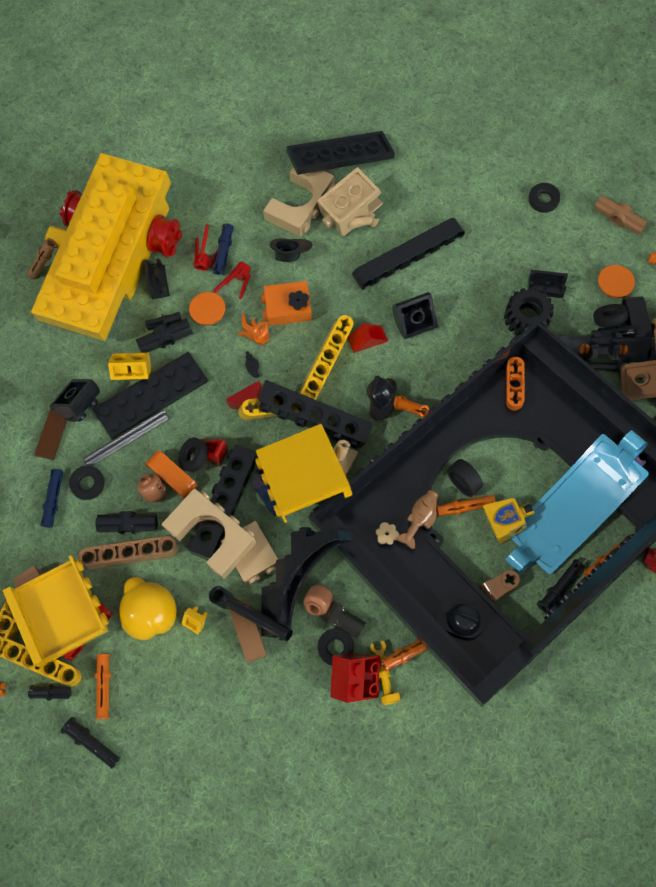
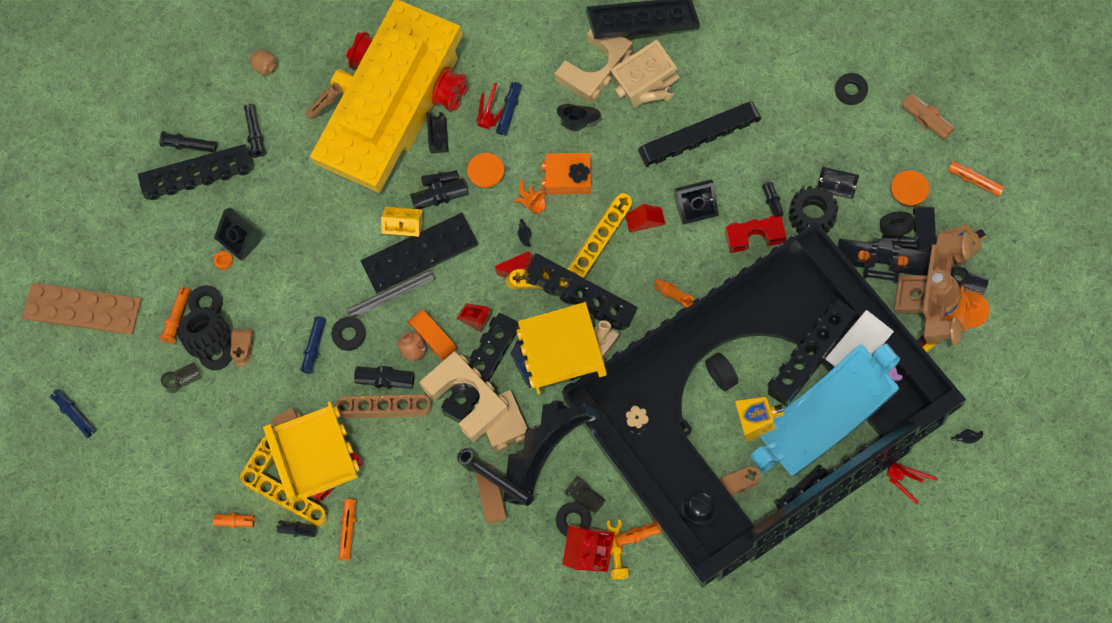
camera: 10 degrees right, 0 degrees up
(50, 436) = (319, 278): reddish brown tile -> none
(75, 399) = (345, 249): black brick -> none
(82, 737) = (324, 573): black pin -> none
(146, 609) = (395, 462): yellow piece -> none
(194, 620) = (440, 478): yellow tile -> none
(199, 458) = (461, 323): black tyre -> none
(240, 272) = (522, 135): red plant -> none
(318, 600) = (561, 473): nougat head -> none
(381, 396) = (650, 280): black piece -> none
(422, 514) = (674, 402): medium nougat animal -> none
(457, 507) = (716, 399): orange pin -> none
(487, 306) = (772, 199): none -> black axle
(490, 334) = (770, 229): none -> red arch
(510, 390) = (780, 288): orange beam -> none
(577, 409) = (786, 393): none -> black brick
(602, 420) = (866, 331): none -> white sticker

